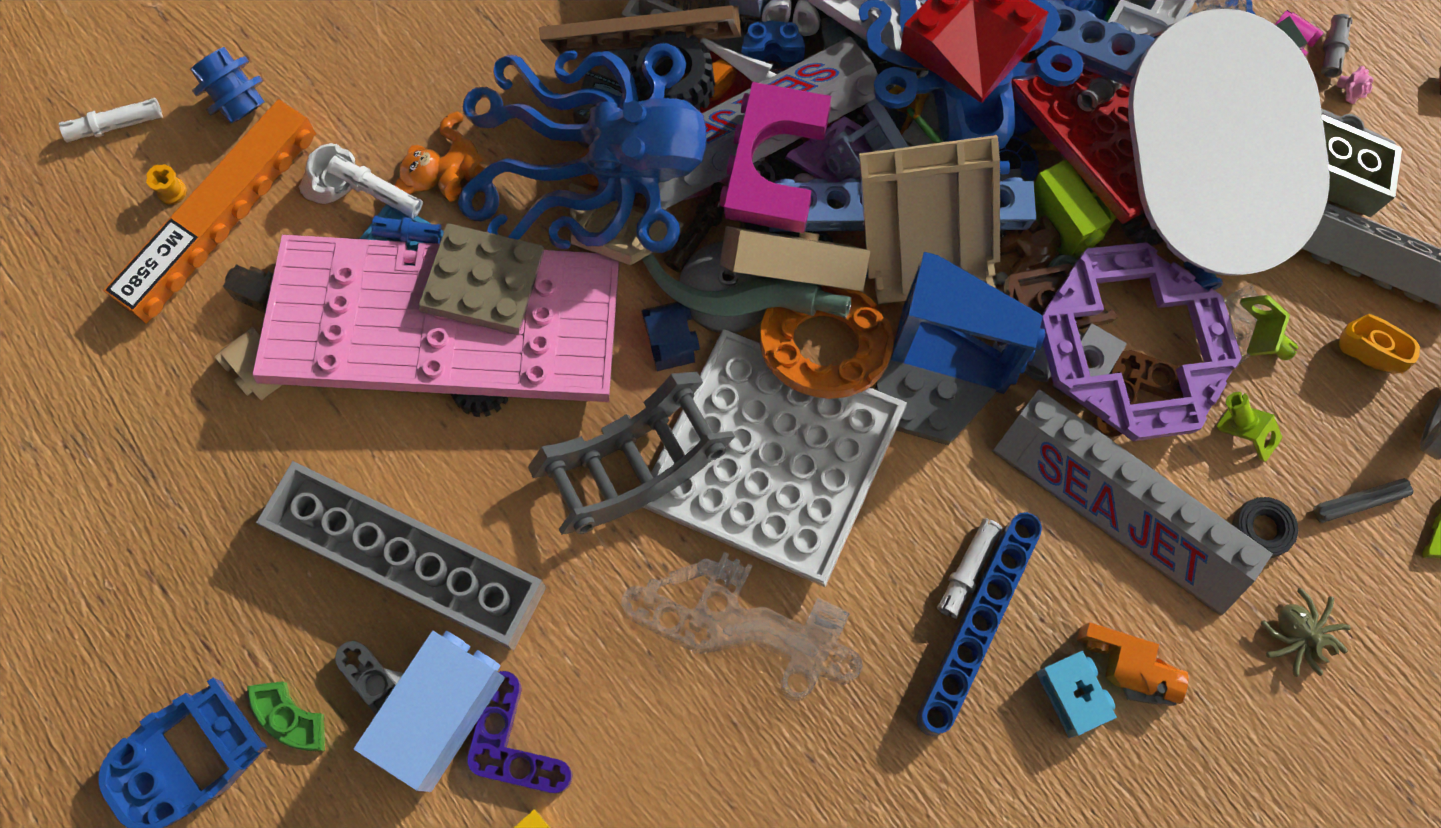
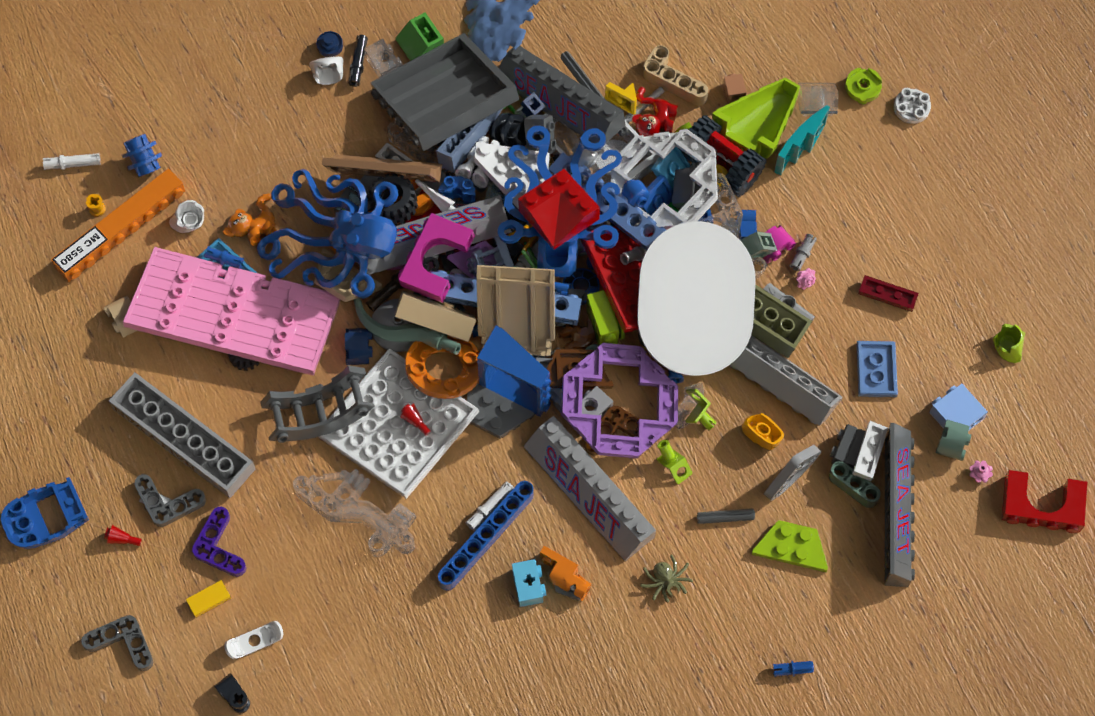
camera: 15 degrees right, 5 degrees down
(249, 286) = (130, 272): clear smoke brick -> none
(284, 719) = (101, 508): bright green tile -> none
(325, 767) = (117, 536): none -> red cone
(364, 180) = (205, 223): white pin -> none
(431, 711) = (180, 514): light blue brick -> none
(482, 279) = (259, 293): dark tan plate -> none
(800, 439) = (412, 416): none -> red cone
(1282, 516) = (672, 510): black tyre -> none

